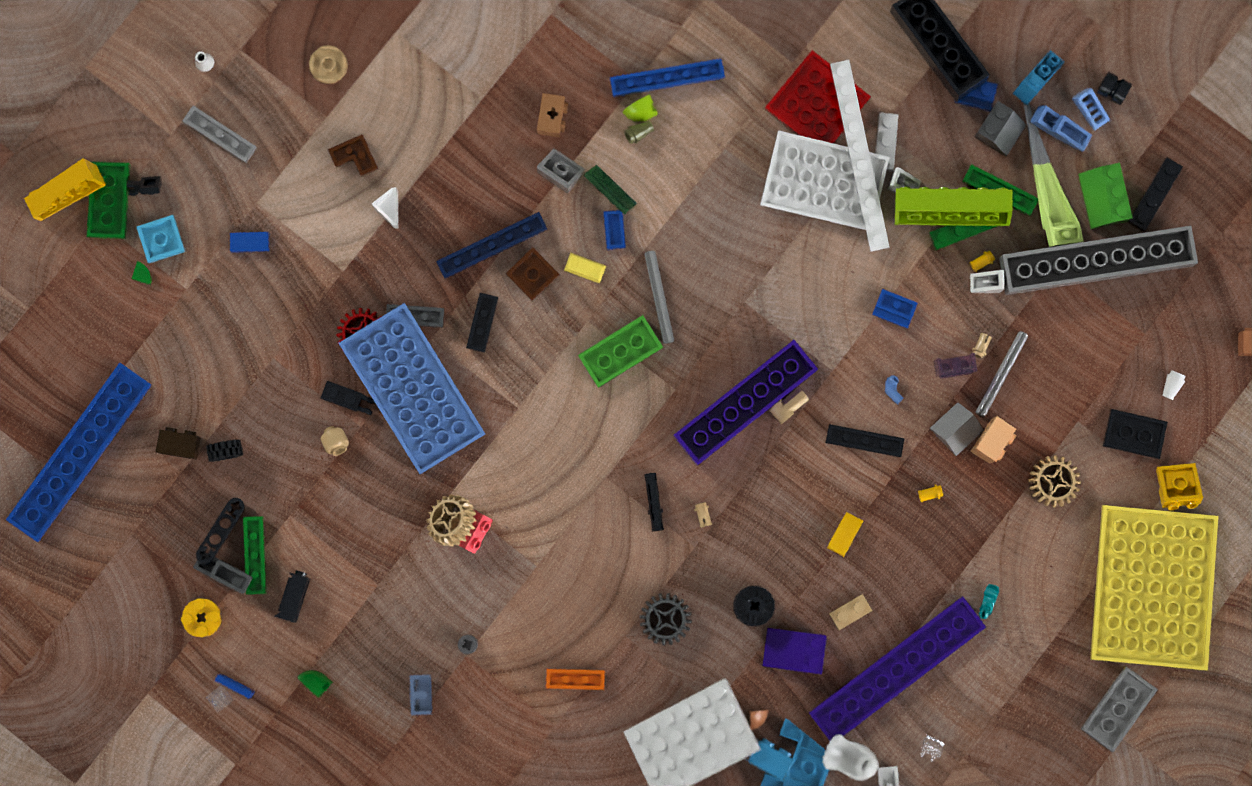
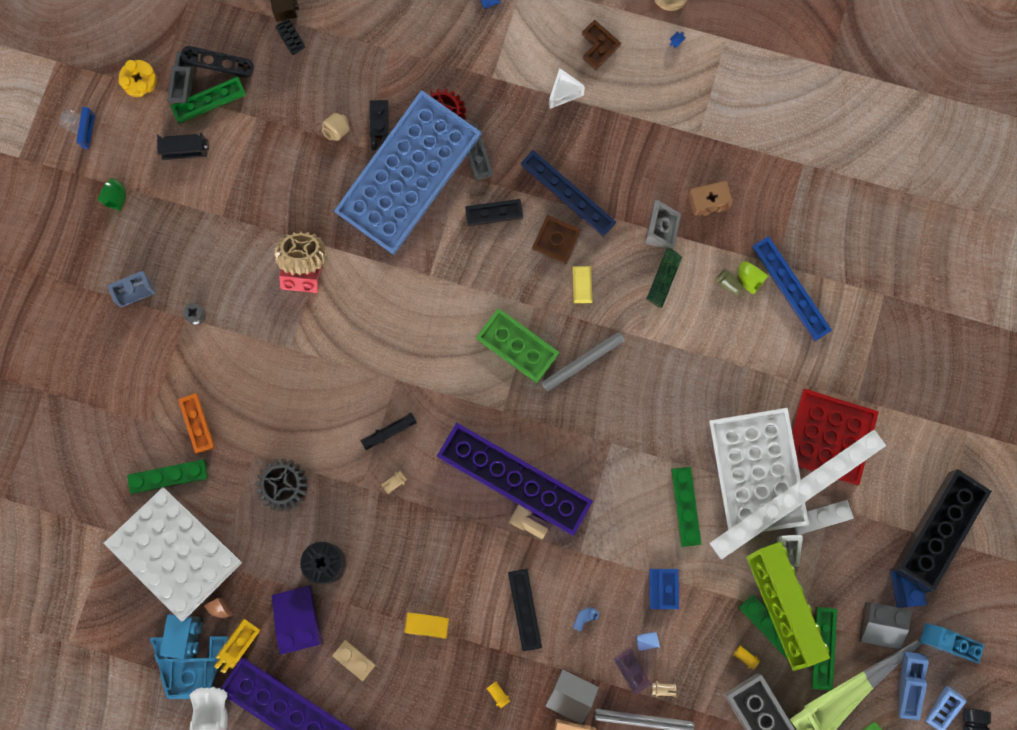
camera: 75 degrees right, 5 degrees down
(380, 79) = (677, 39): none -> blue plate
(614, 230) = (628, 297): blue tile -> none
(614, 724) = (167, 476): none -> green plate
(797, 713) = (236, 645): none -> yellow hinge
(829, 258) = (686, 506): none -> green plate
(934, 342) = (647, 641): none -> light blue slope
(987, 282) = (728, 670): white slope -> none

